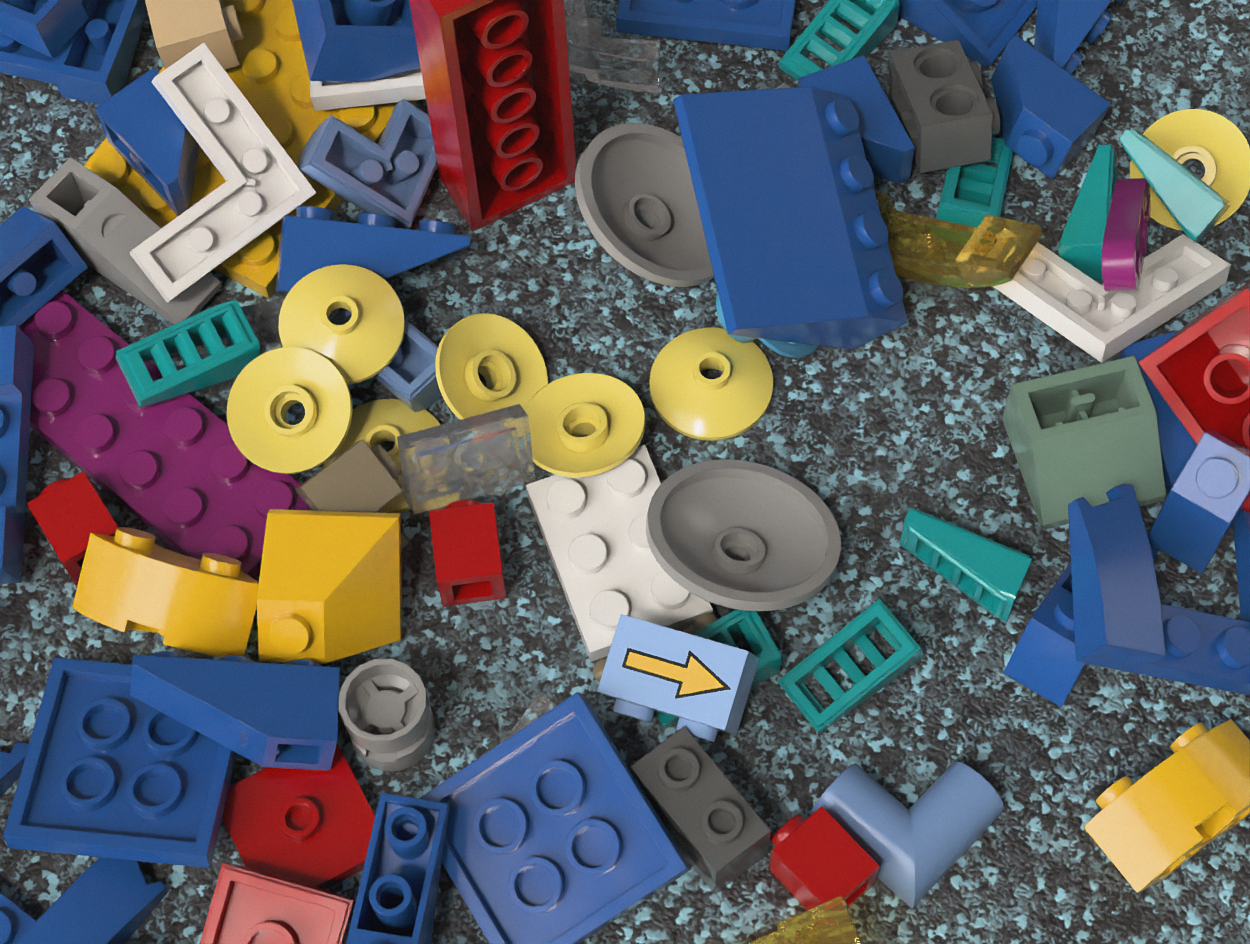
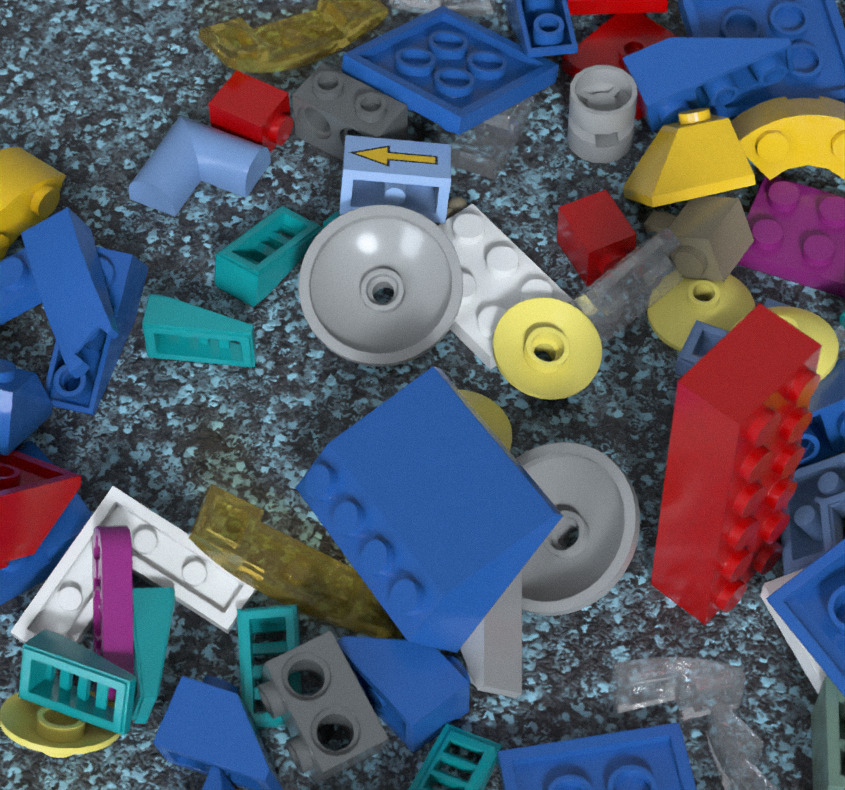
camera: 160 degrees right, 10 degrees down
(261, 402) = (787, 276): light yellow dish -> none
(496, 351) = (641, 365): light yellow dish -> none
(1085, 436) = (122, 443): sand green slope -> none

